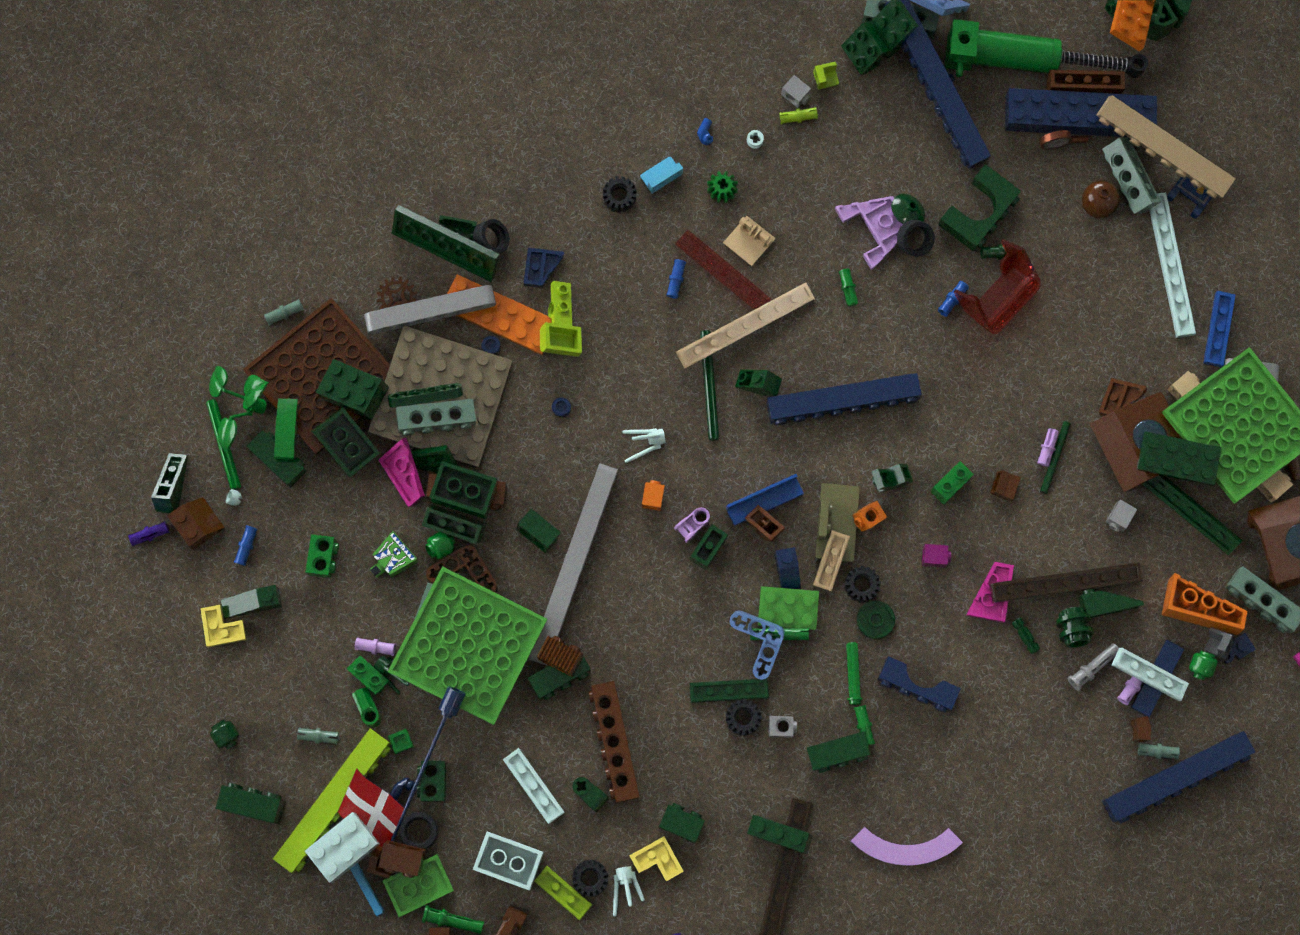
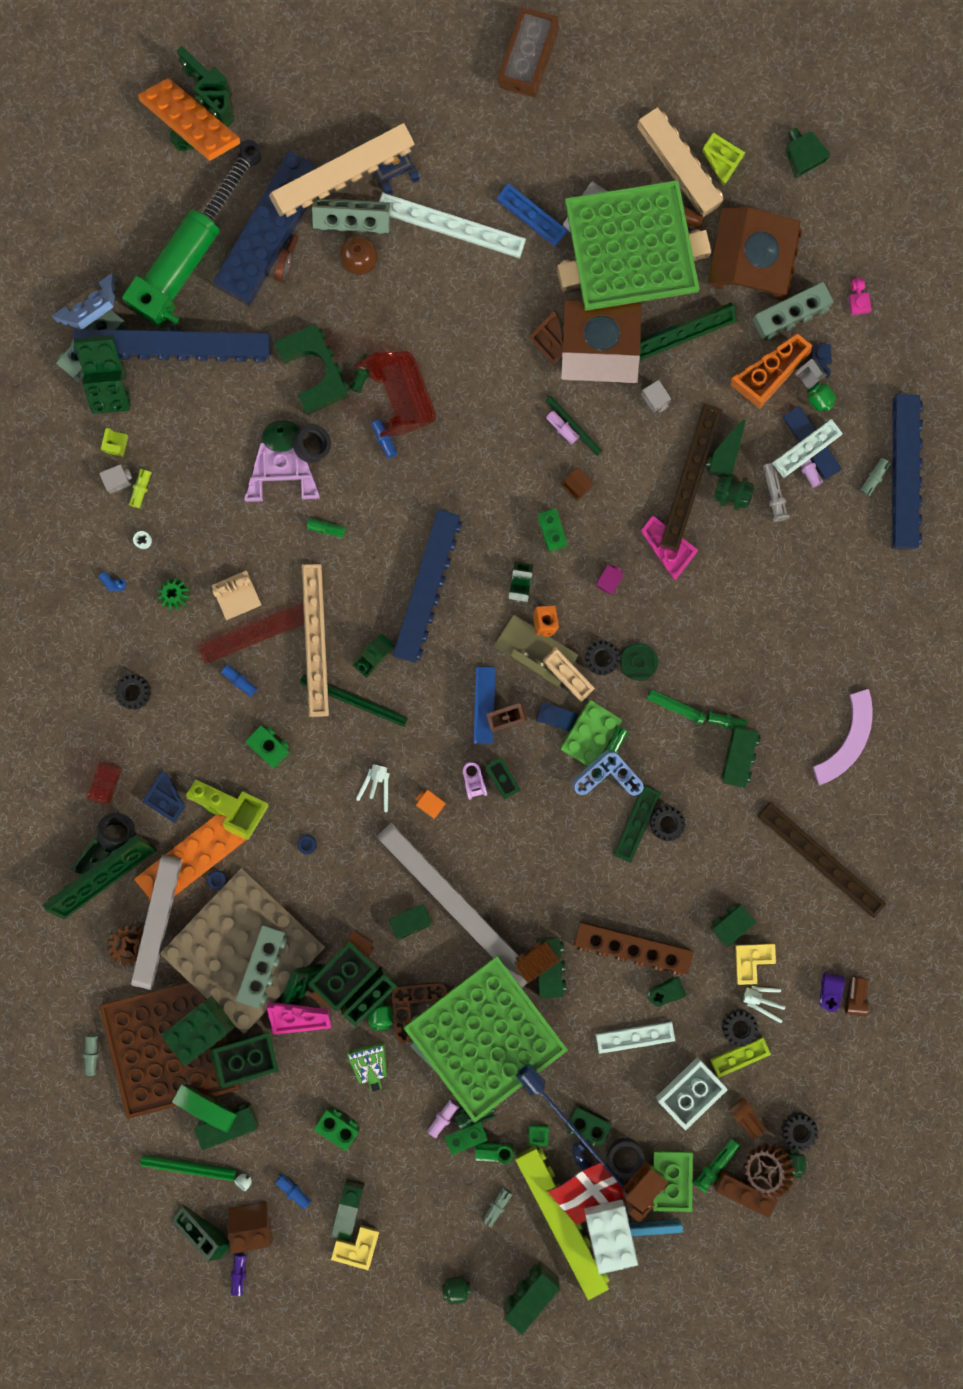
camera: 55 degrees left, 10 degrees up
(252, 403) = (163, 1127): green plant -> none
(425, 395) = (237, 966): dark green beam -> none
(528, 208) = (104, 783): none -> clear red brick
(630, 320) = (257, 743): none -> green brick
(661, 174) = (132, 643): medium azure panel -> none
(773, 729) = (686, 800): light grey brick -> none
(780, 834) = (786, 845): dark green brick -> none
(895, 674) = (734, 639): dark blue arch -> none
(1025, 635) = (720, 537): dark green axle -> none
(1086, 81) = (242, 207): reddish brown brick -> none
(1141, 729) = (850, 482): reddish brown piece -> none
(1179, 458) = (635, 318): dark green plate -> none

